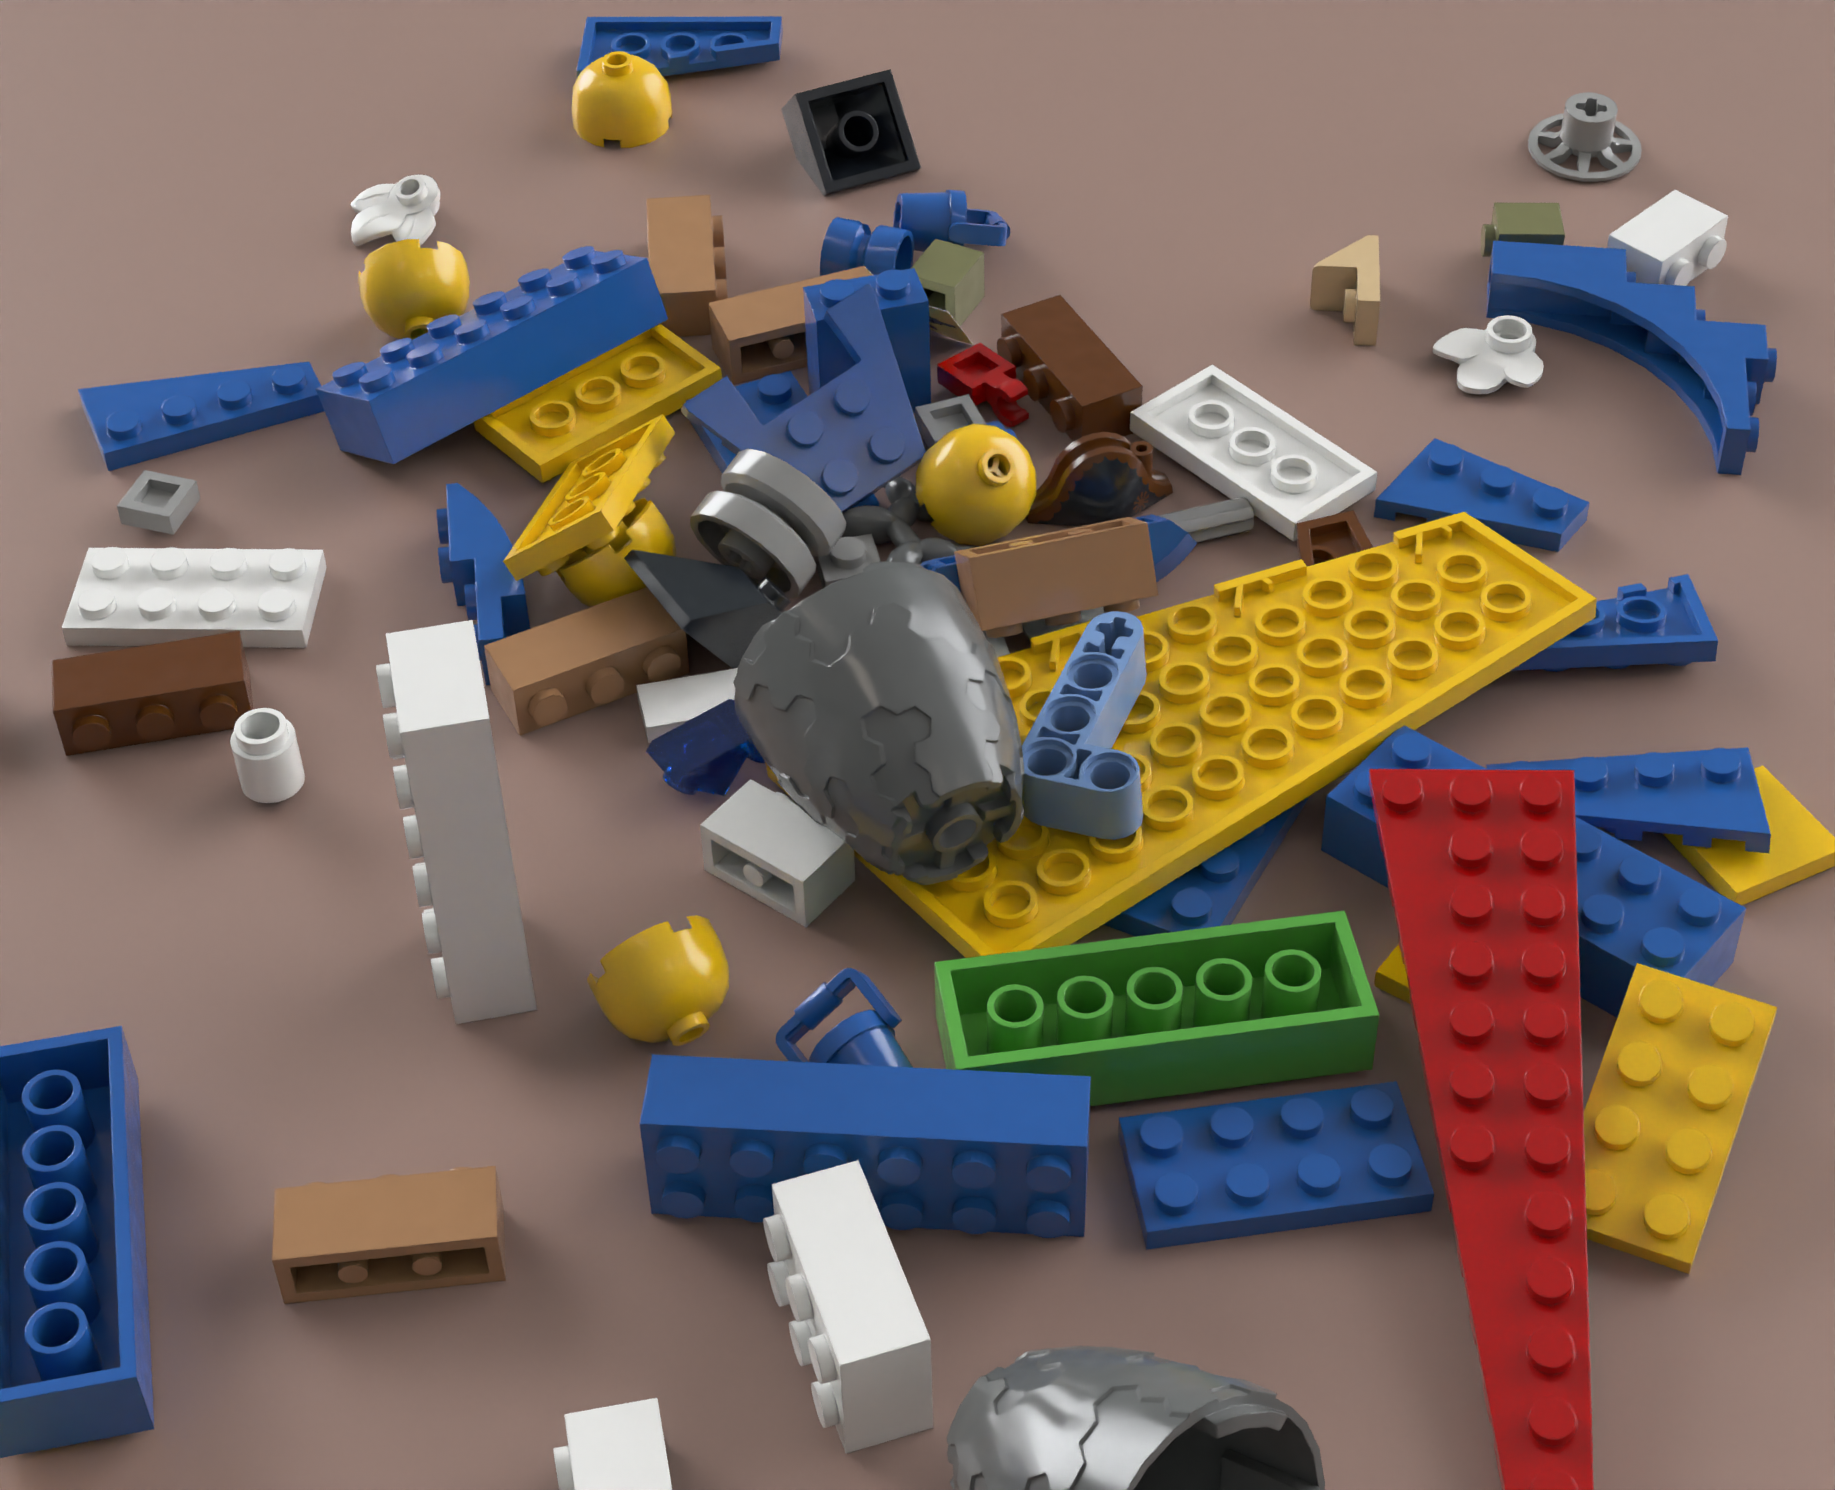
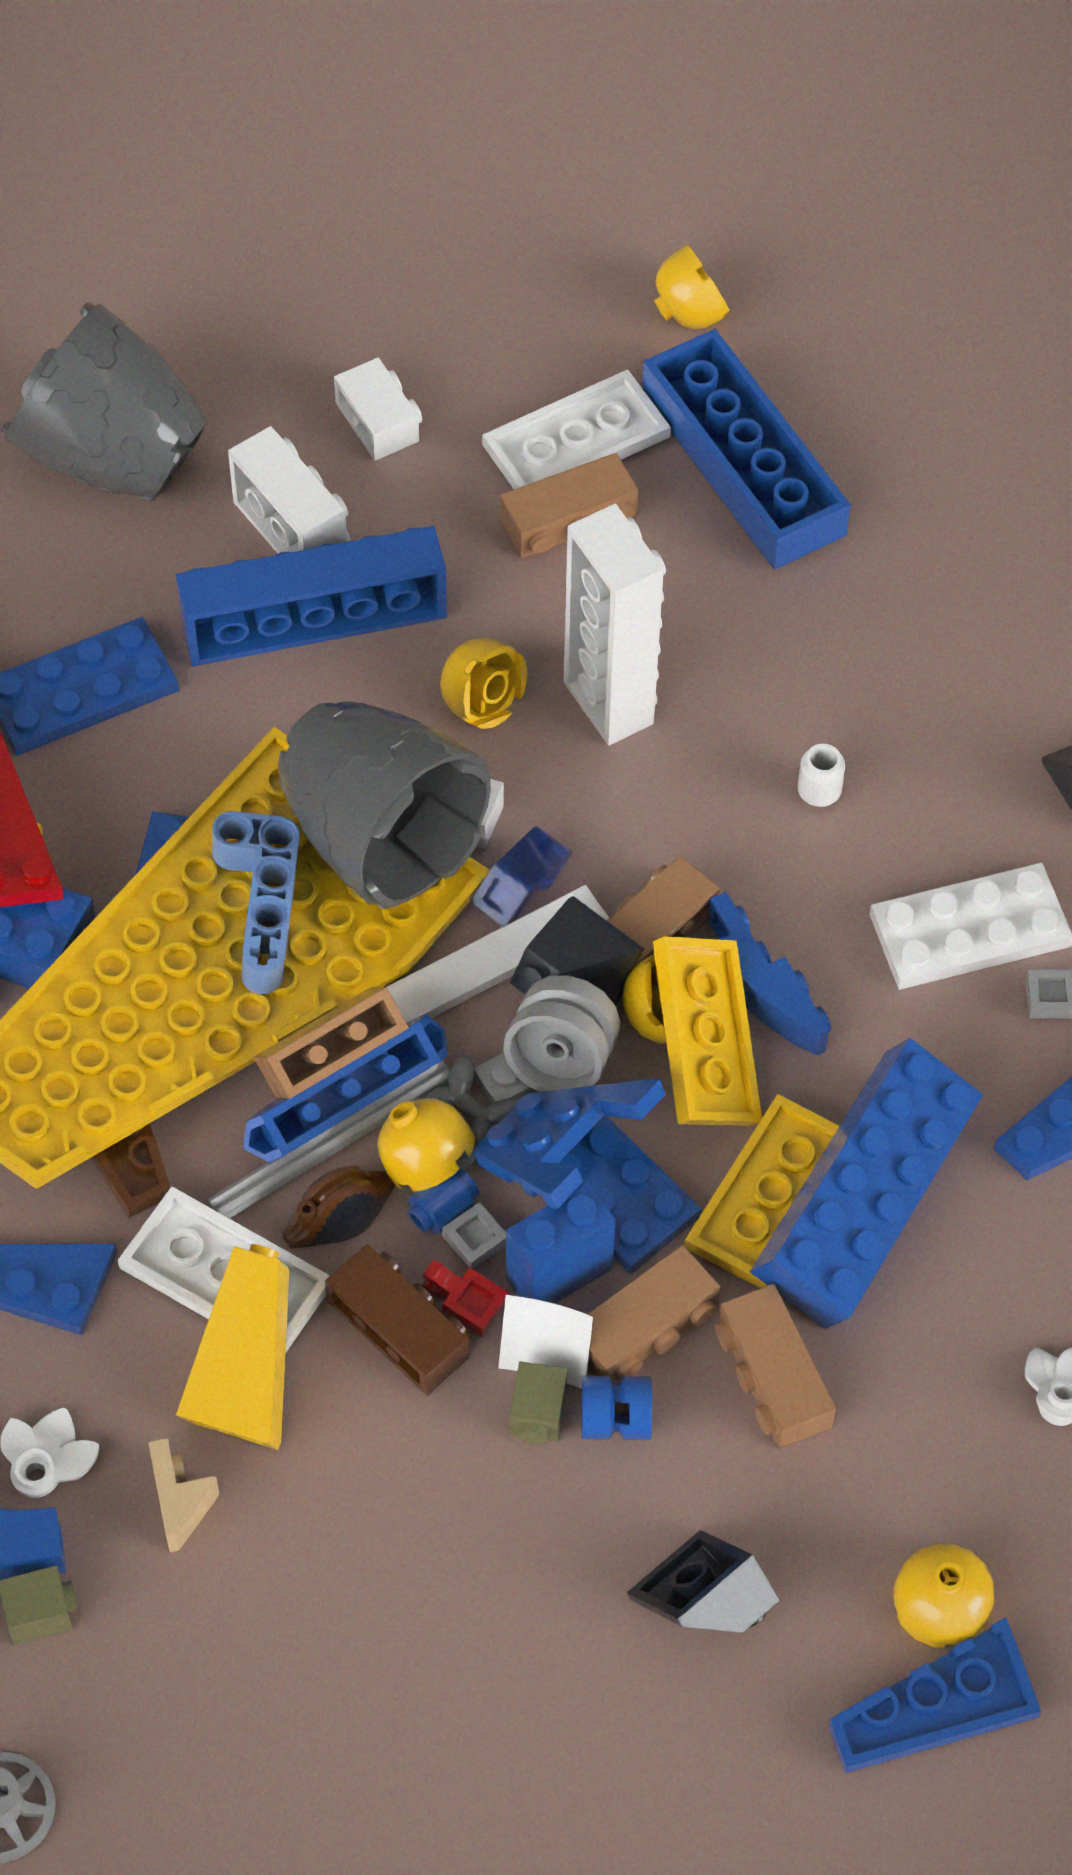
camera: 160 degrees right, 15 degrees up
(150, 692) = (937, 819): reddish brown brick -> none
(308, 1361) = (577, 430): none -> white plate
(413, 286) = (979, 1251): yellow cylinder -> none
(859, 1039) = (346, 668): blue piece -> none
(947, 219) = (575, 1472): blue piece -> none
(1167, 1009) = (166, 730): bright green brick -> none
(1258, 349) = (241, 1358): none -> yellow slope

